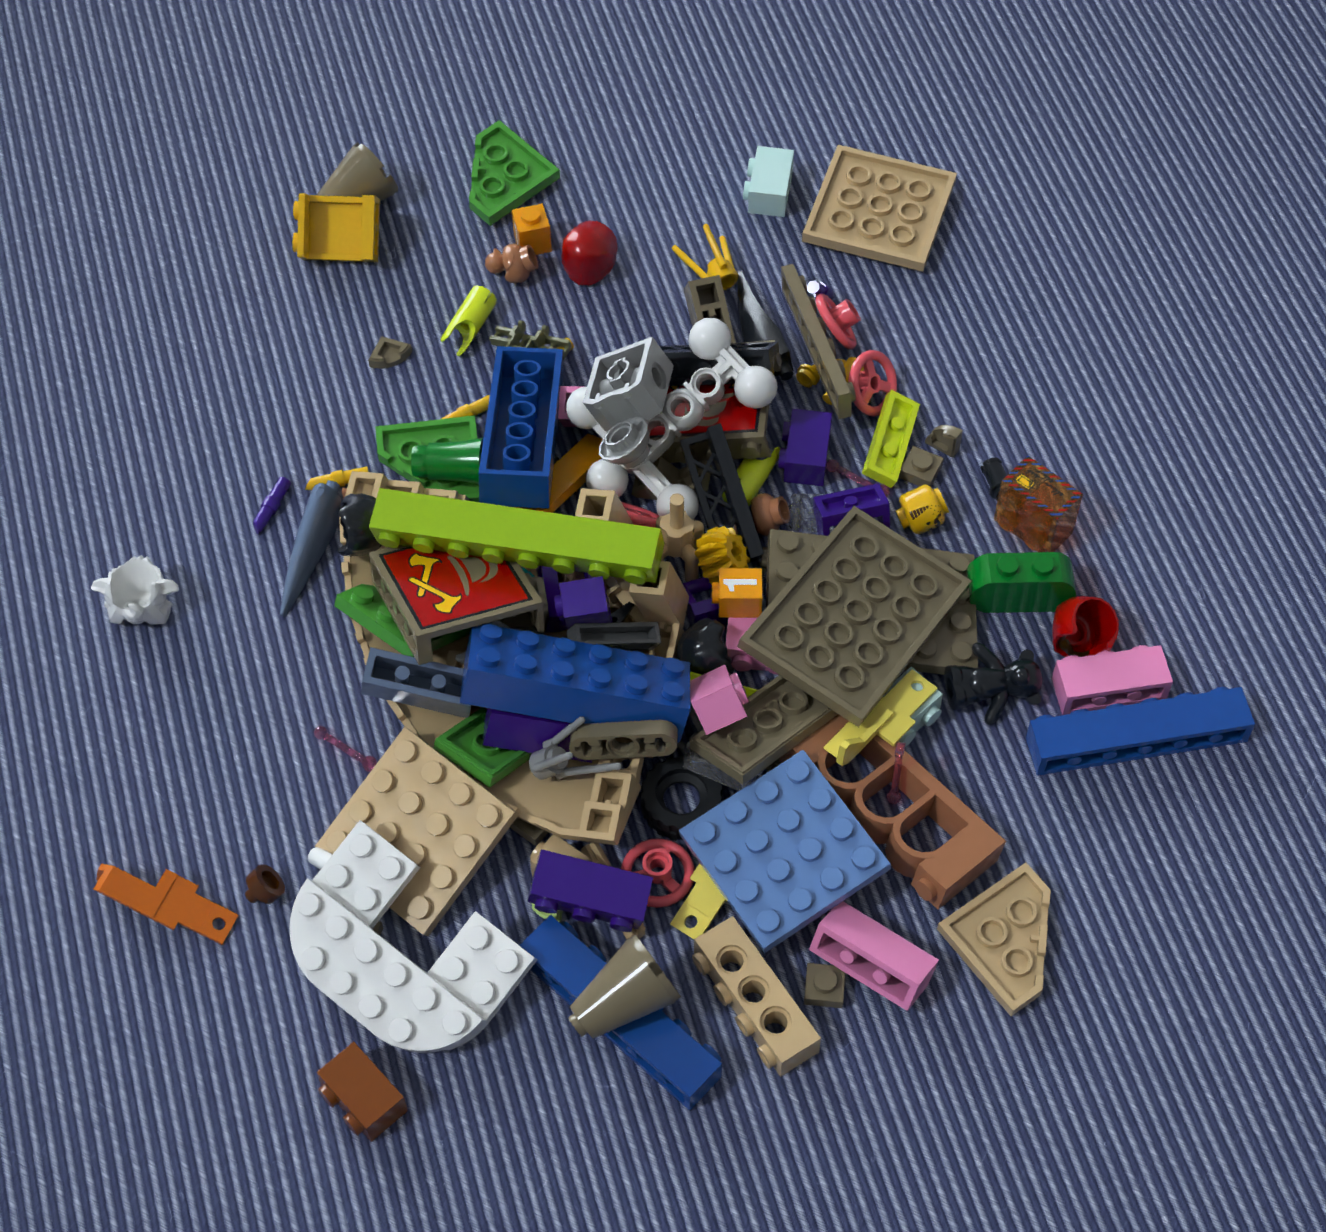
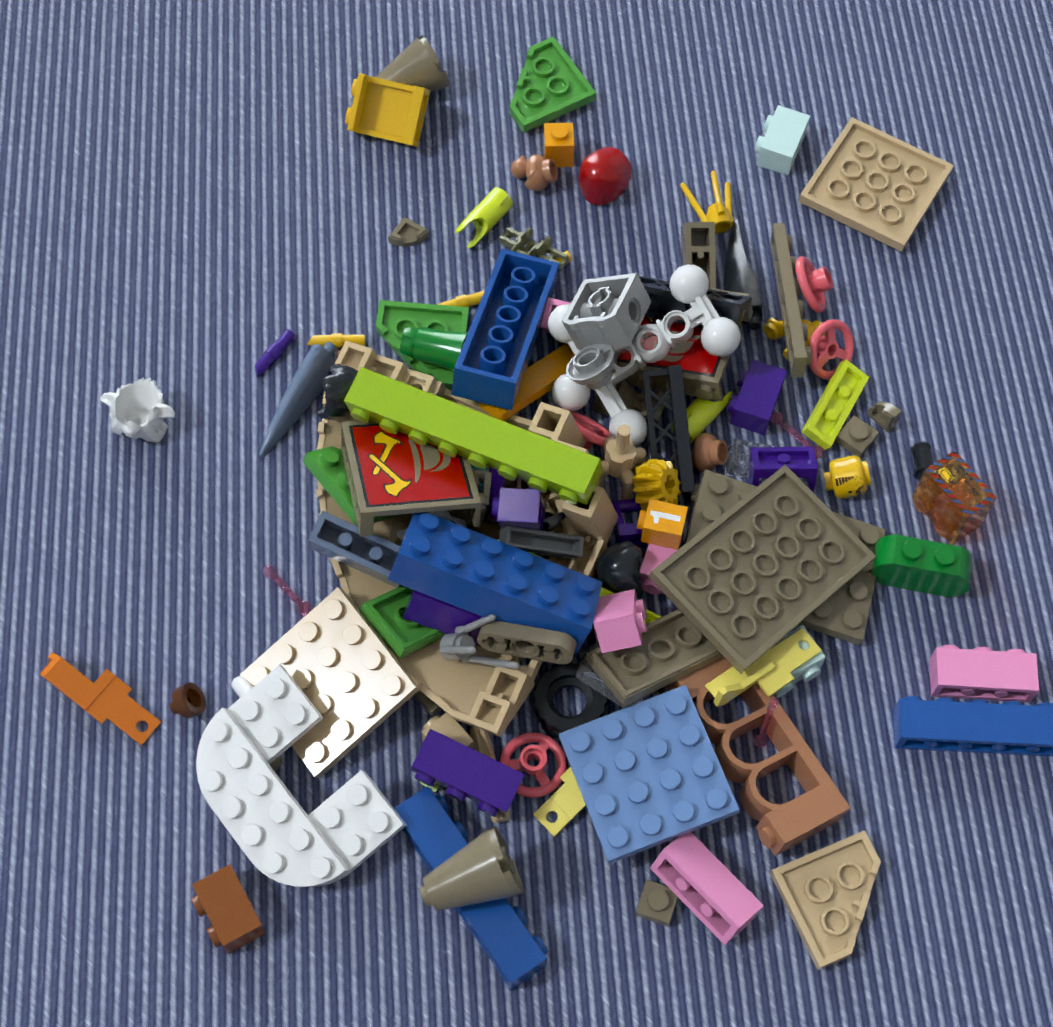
camera: 10 degrees right, 5 degrees up
(728, 944) = (581, 847): tan brick -> none
(816, 288) = (799, 250): piece -> none
(994, 681) = (854, 652): black piece -> none
(1084, 626) = (969, 620): red piece -> none

